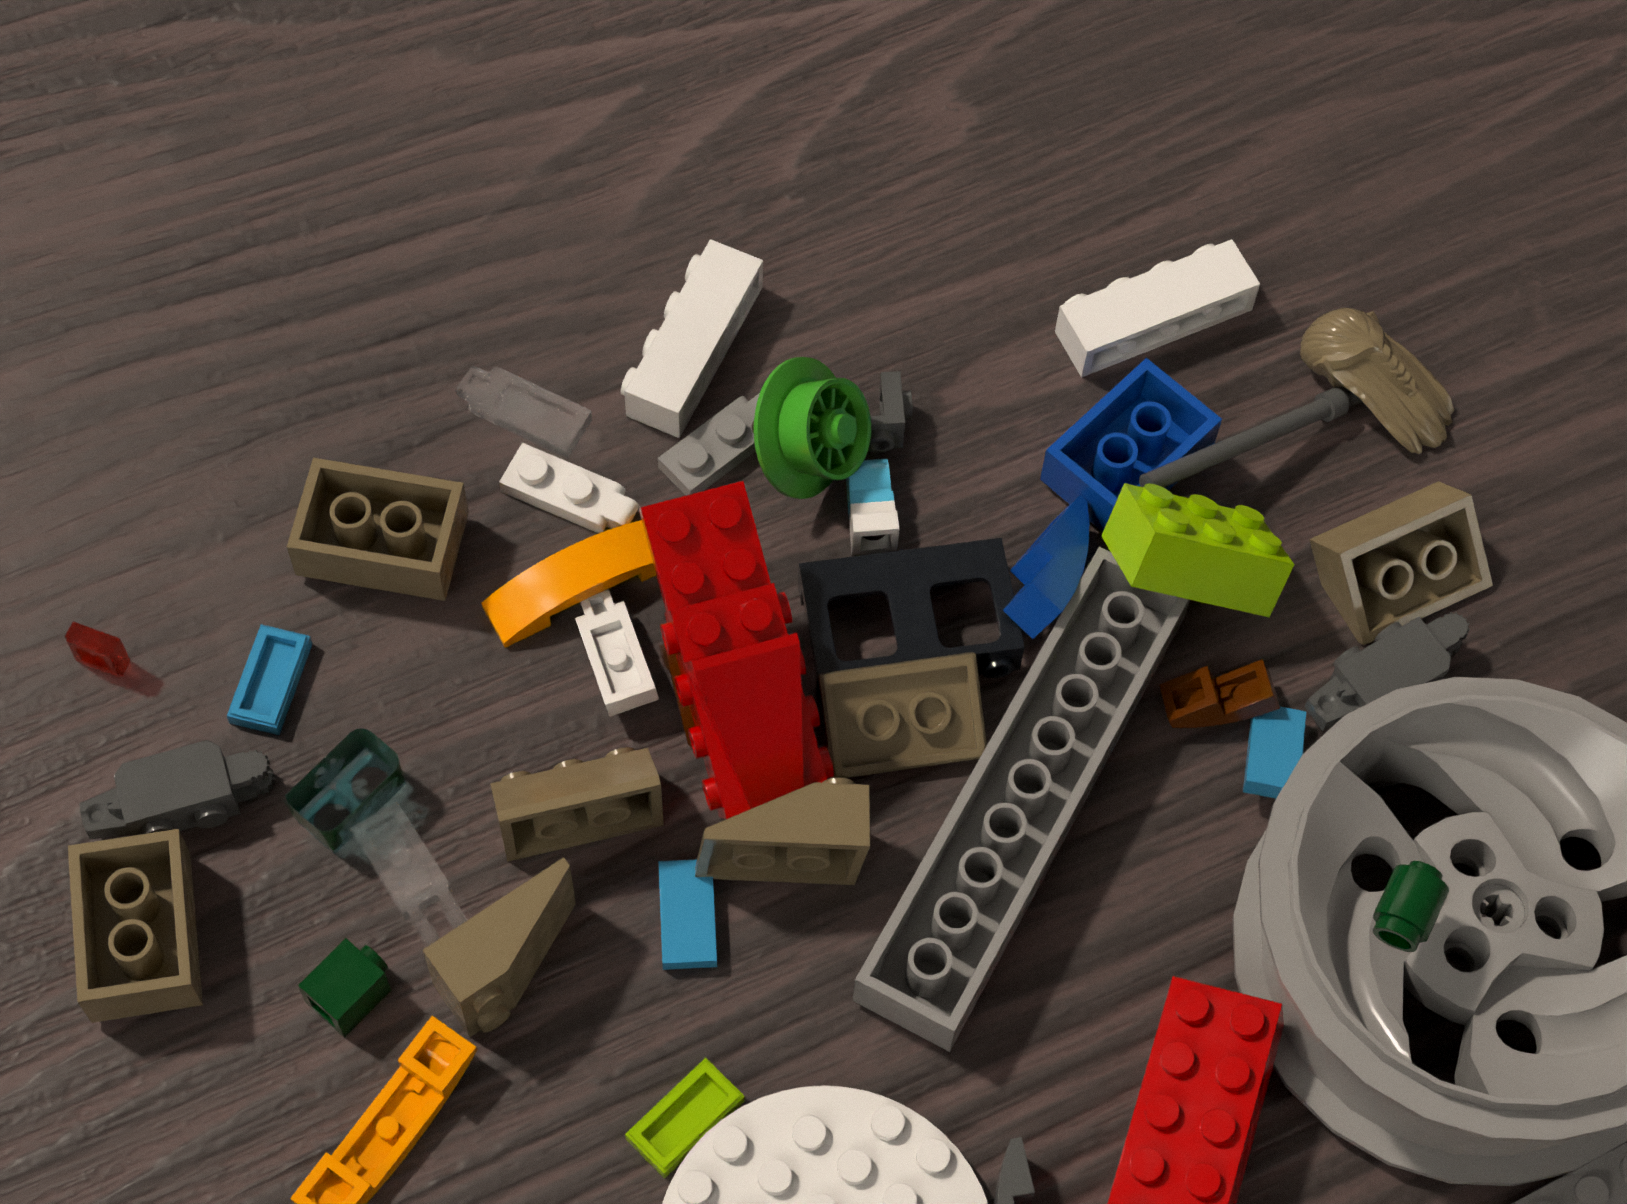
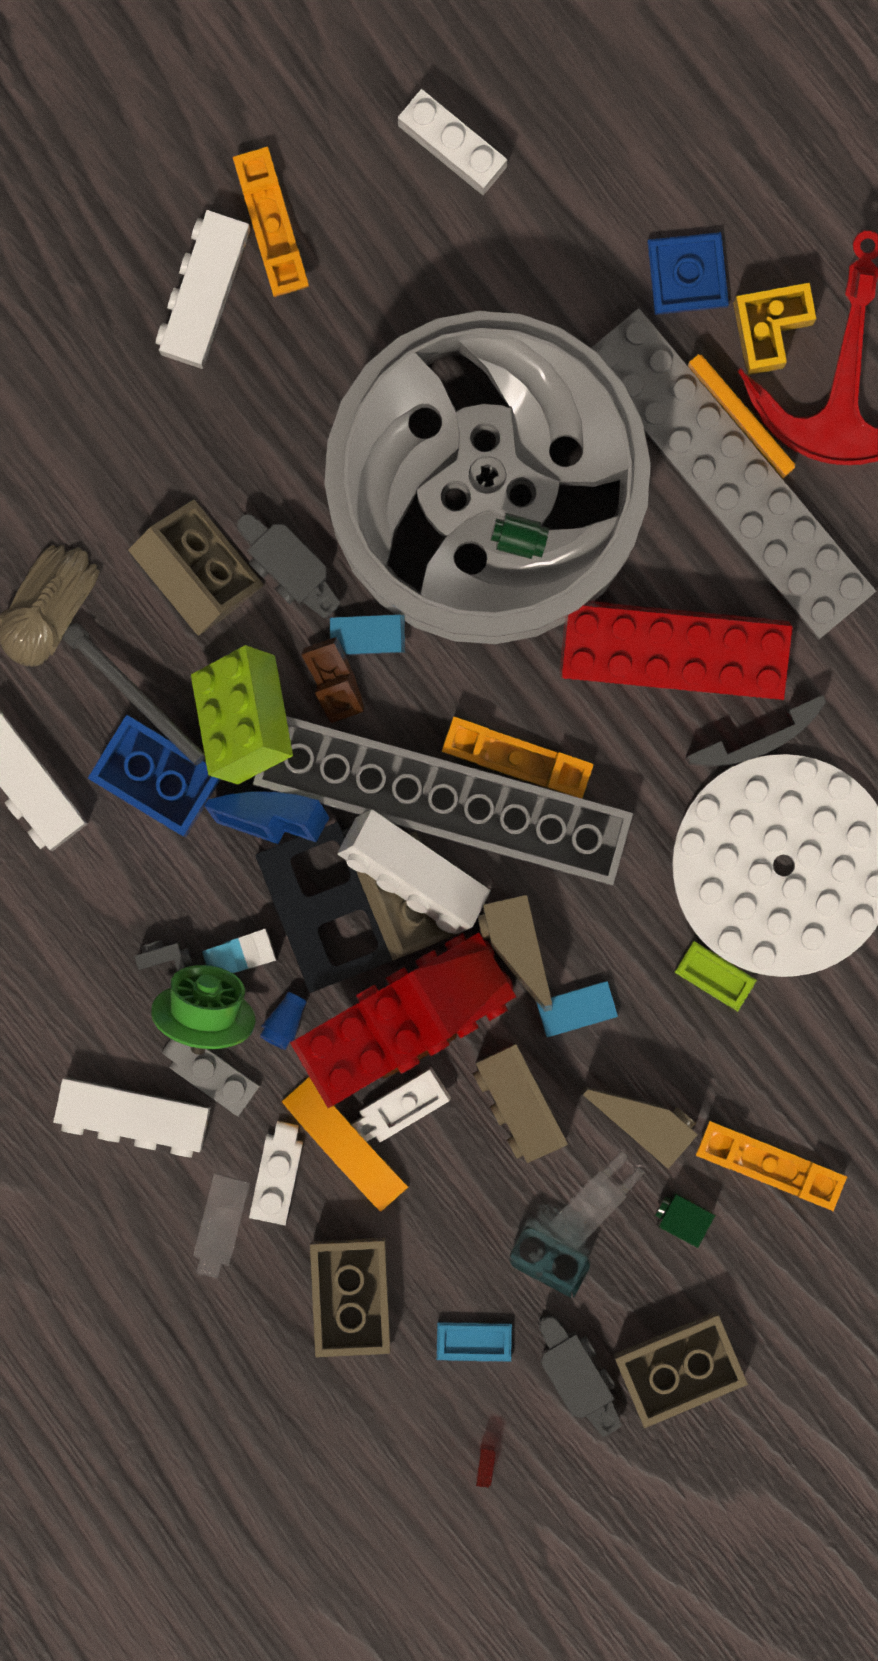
camera: 100 degrees left, 25 degrees up
(775, 539) = (283, 1022): none -> blue cone
(935, 719) = (413, 872): none -> white brick
(1065, 906) = (517, 758): none -> light orange slope

